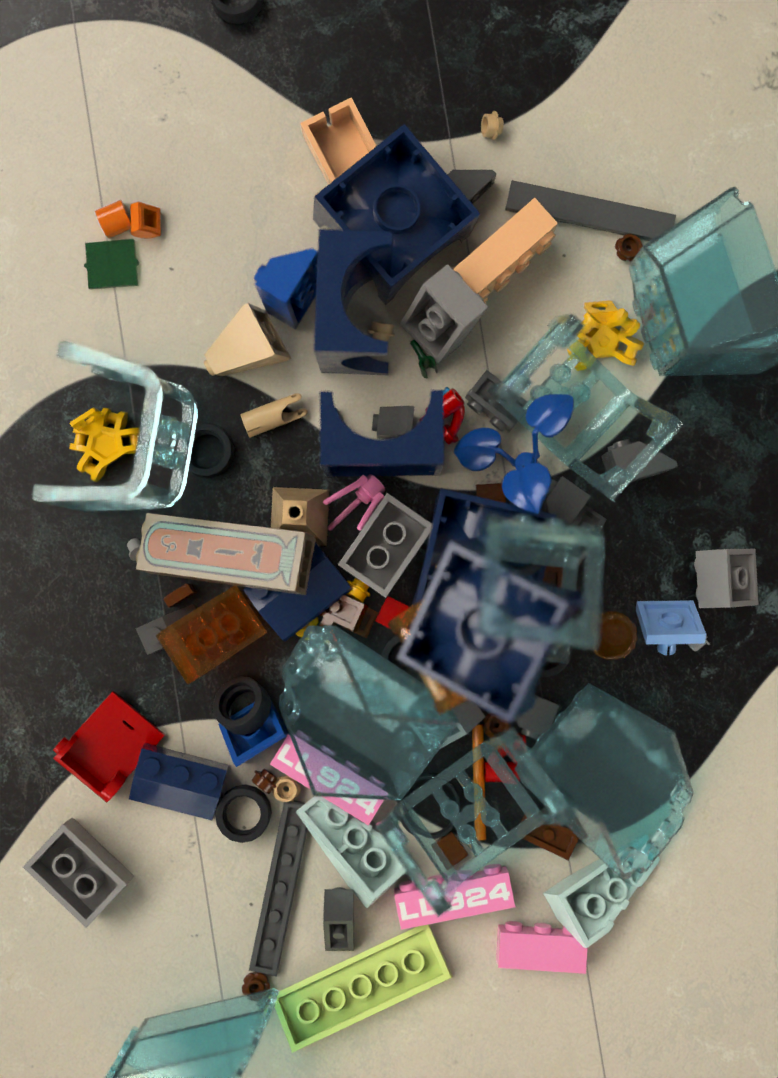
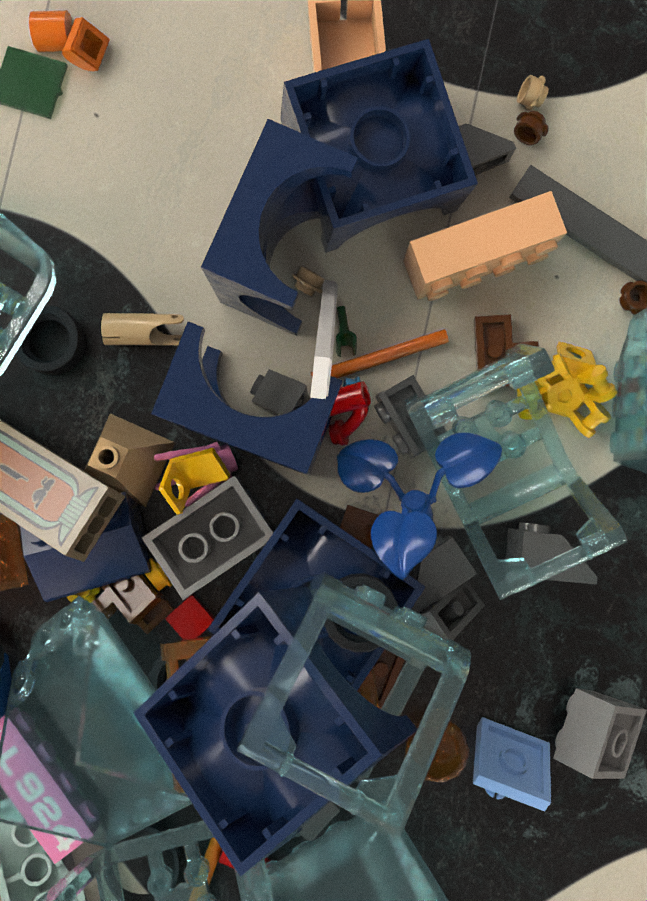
camera: 20 degrees right, 0 degrees up
(246, 344) = (144, 232): tan slope -> none
(288, 285) = (207, 173): blue slope -> none
(355, 502) = (191, 472): none -> yellow bracket
(417, 366) = (324, 342): none -> white tile
(443, 313) = (387, 286): light grey brick -> none
(456, 366) = (389, 354): none -> orange bar
(500, 152) = (530, 127): none -> reddish brown plate
(535, 319) = (493, 338): none -> reddish brown plate

